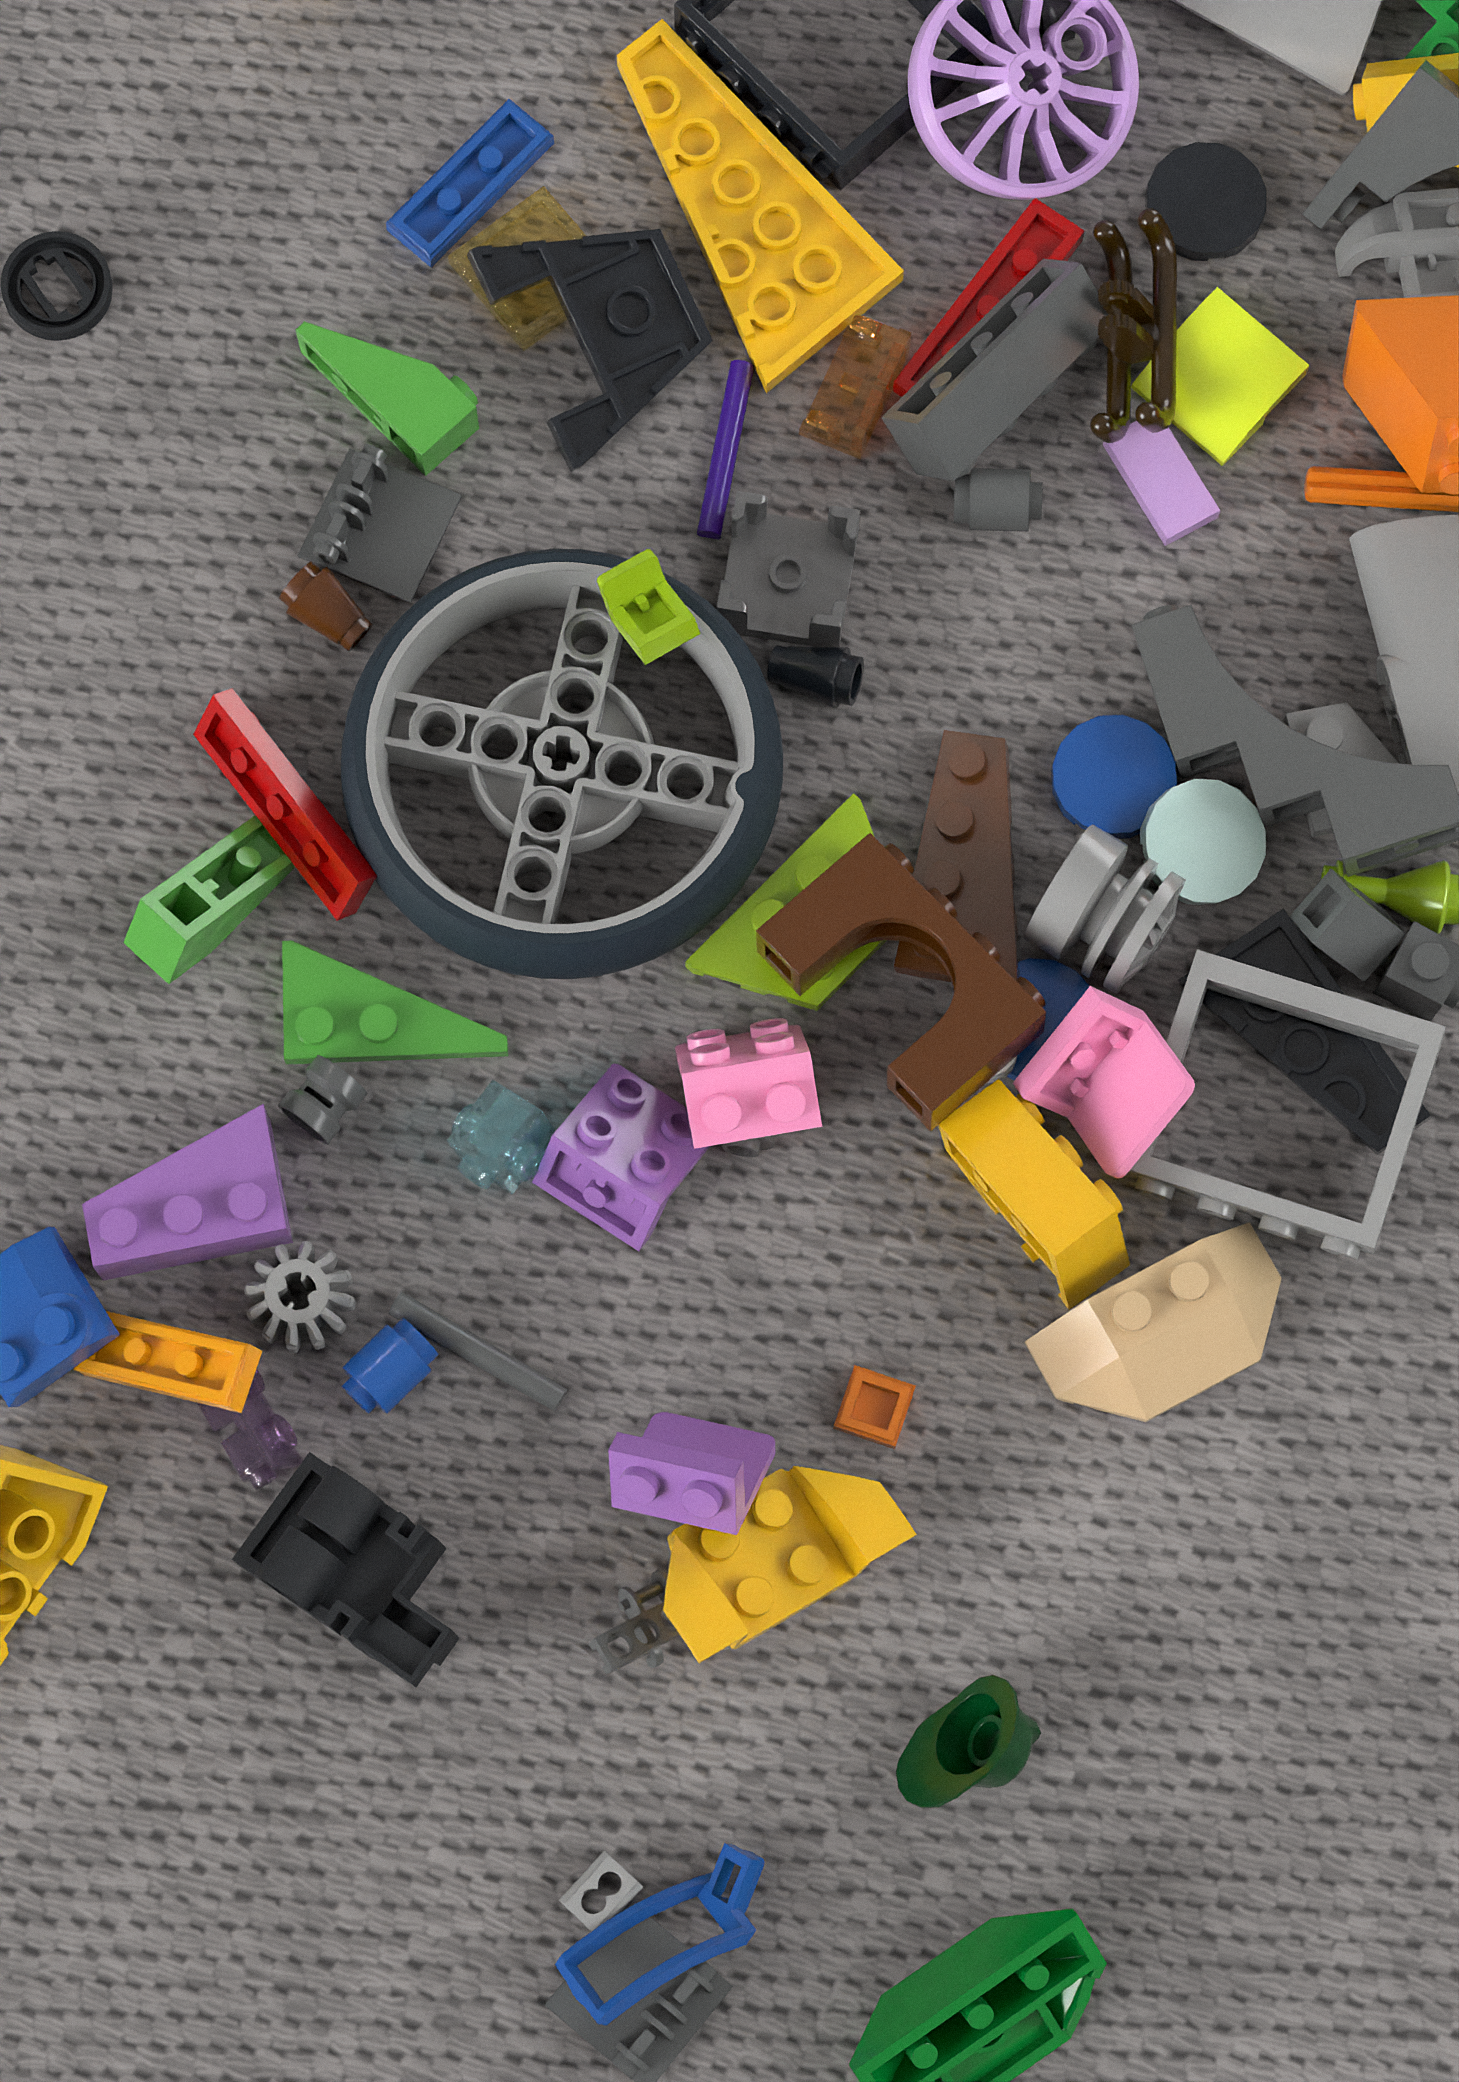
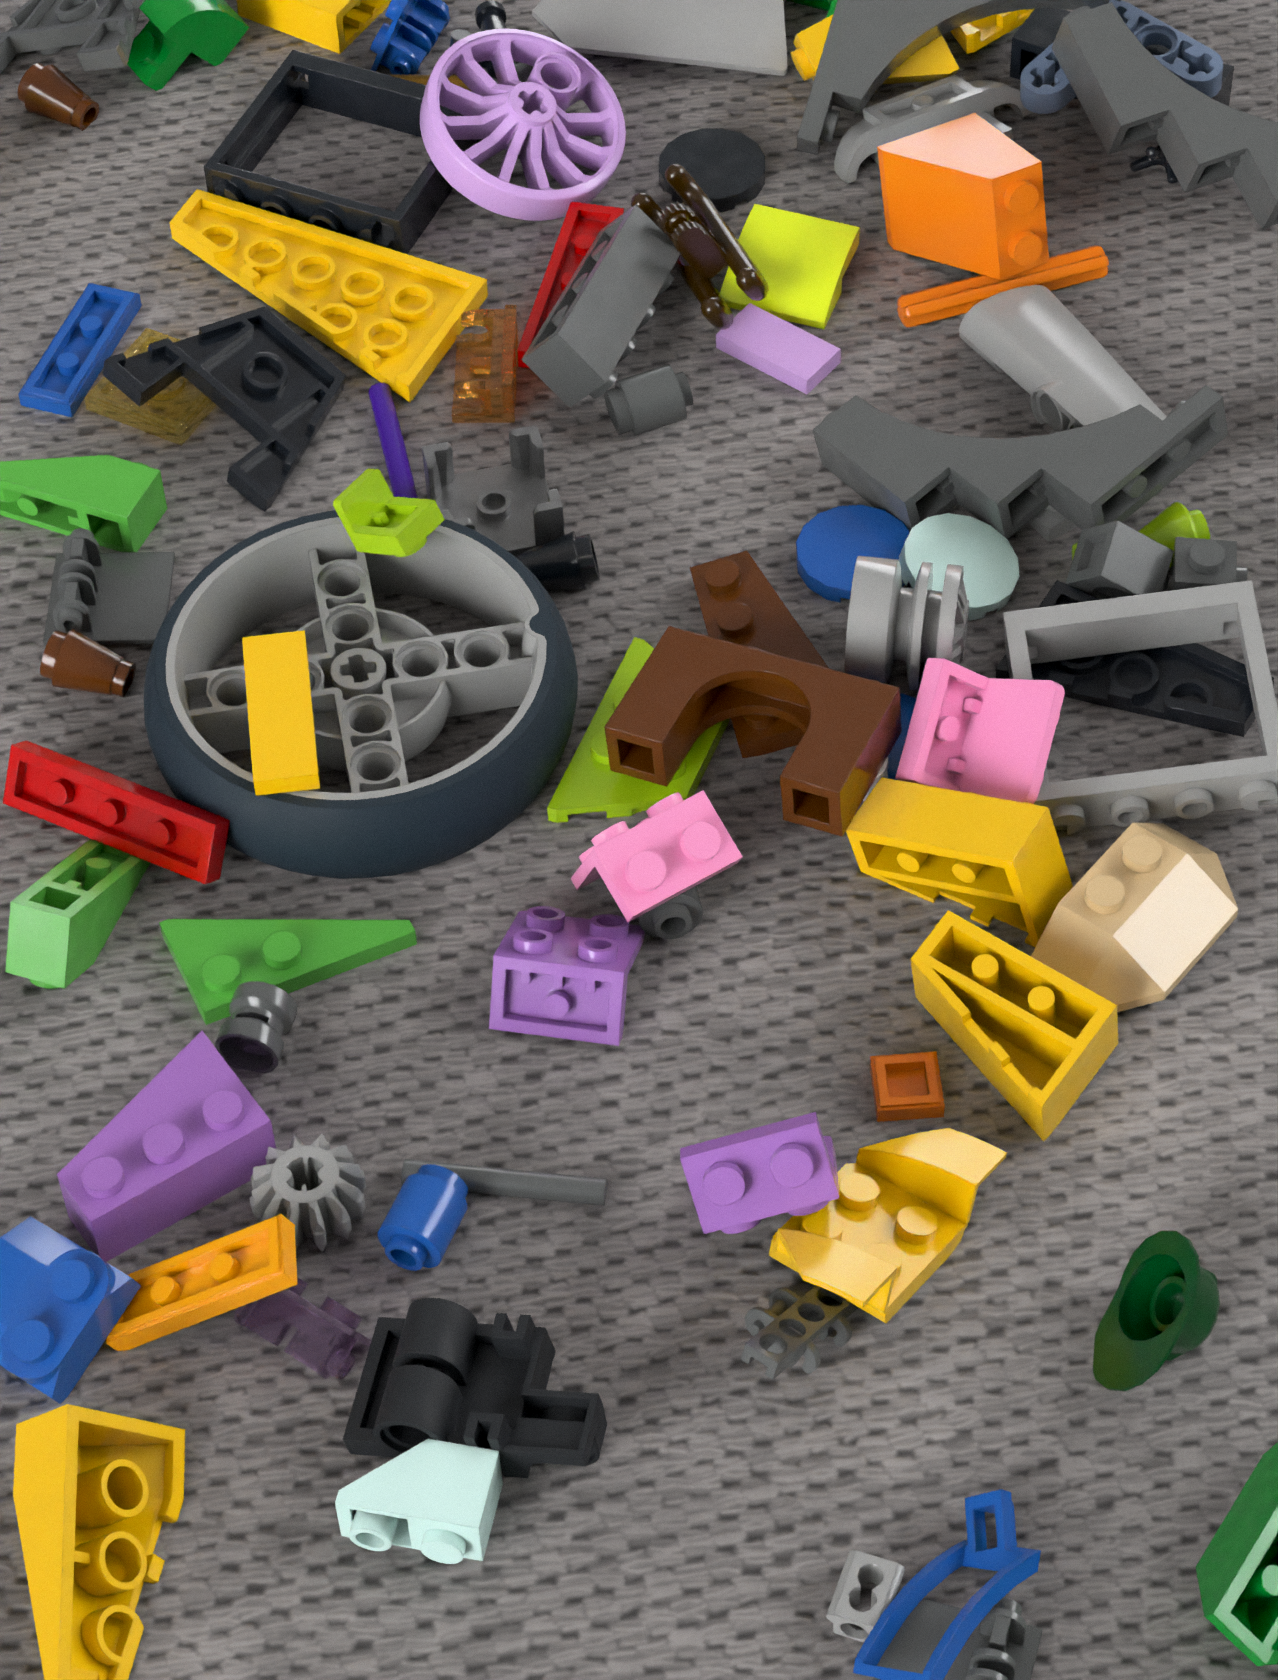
camera: 20 degrees left, 25 degrees down
(282, 1648) = (427, 1500): none -> light aqua slope
(458, 795) = (280, 713): none -> yellow tile
(500, 1139) = (443, 992): clear light blue brick -> none
(992, 1396) = (1014, 1019): none -> yellow wedge

